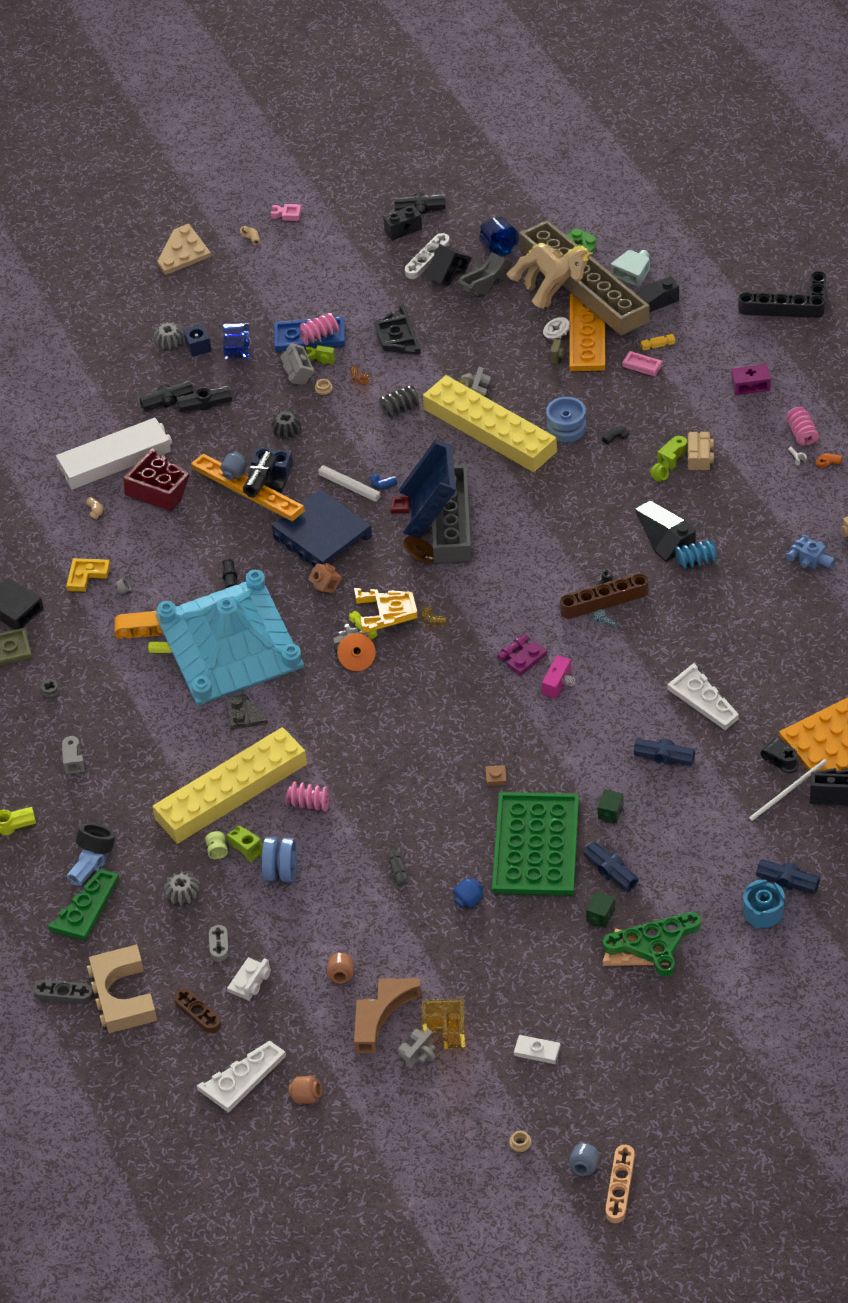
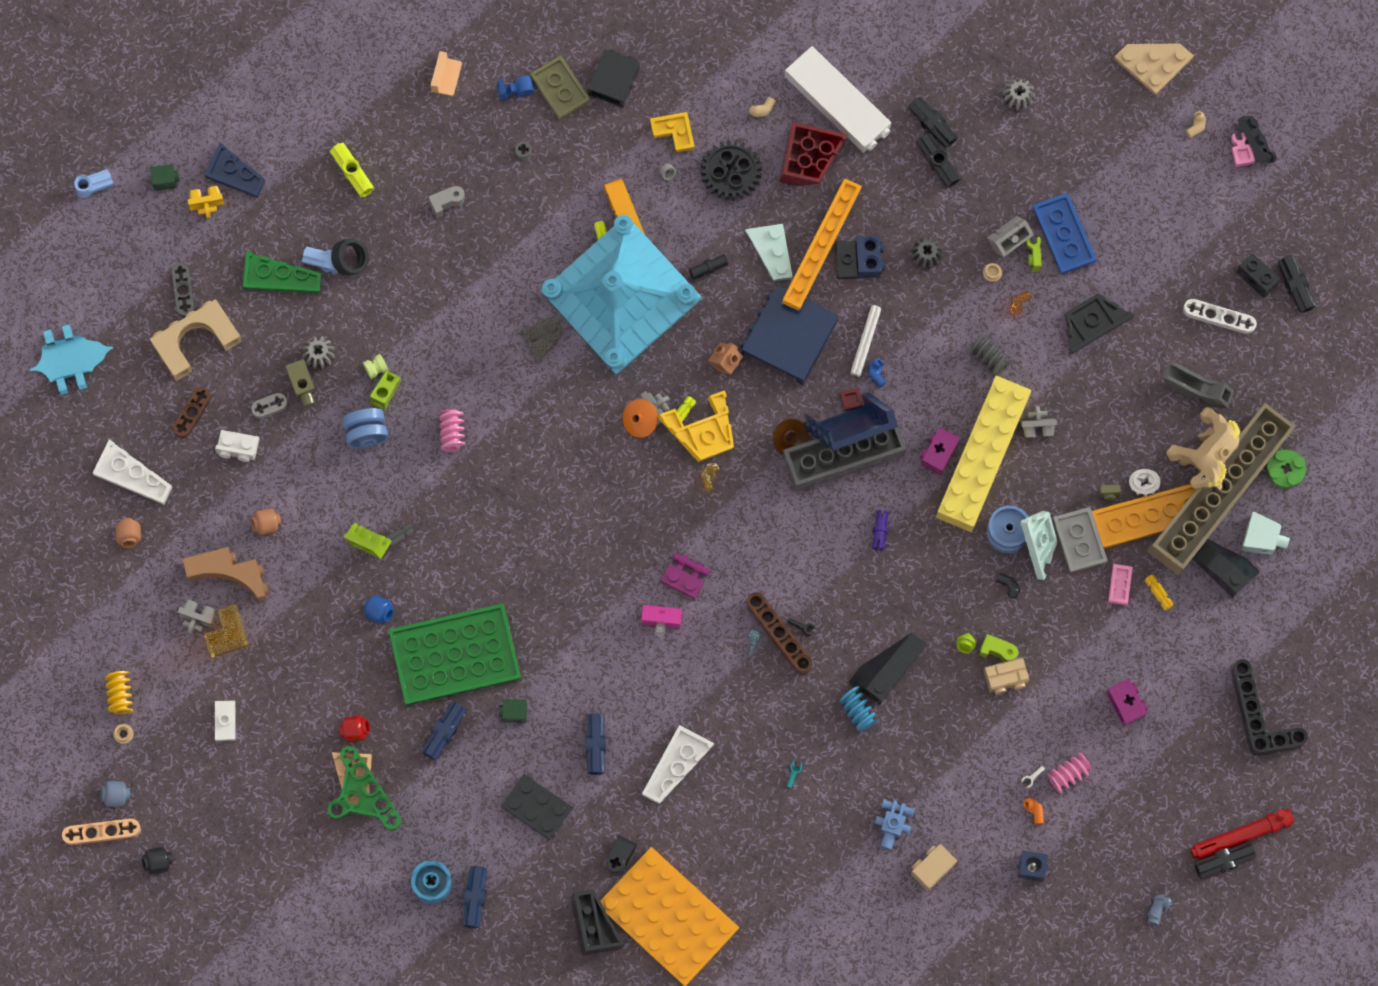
camera: 65 degrees right, 25 degrees up
(92, 1107) = (69, 358): none -> medium azure animal
(144, 540) = (747, 176): none -> black gear
(197, 340) = (1019, 125): dark blue piece -> none
(206, 905) = (299, 374): none -> olive torso
(229, 785) = (447, 355): light yellow brick -> none
(233, 466) = (837, 222): sand blue head -> none
(234, 528) = (772, 249): none -> light aqua wing
(236, 340) = (1024, 164): clear blue brick -> none
(259, 474) = (831, 251): black piece -> none
(283, 199) = (1256, 140): none -> black plate
(317, 327) = (1060, 240): bright pink piece -> none
(396, 886) = (367, 540): none -> lime hinge
(446, 263) = (1203, 341): black brick -> none
(475, 452) = (937, 462): none -> magenta brick
(476, 1132) = (117, 692): none -> yellow piece
(496, 775) = (528, 594): medium nougat plate -> none
(498, 236) = (1262, 382): clear blue brick -> none
(531, 509) = (880, 530): none -> dark purple pin
(574, 390) = (1040, 540): none -> light aqua wing
(584, 937) = (354, 728): none -> red head
(592, 380) = (1080, 540): none -> light grey plate
(600, 909) = (389, 734): dark green brick -> none
(668, 1136) = (156, 860): none -> black head
(711, 812) = (537, 807): none -> black plate
(737, 611) = (794, 771): none -> teal hand
(787, 790) = (580, 873): white axle -> none

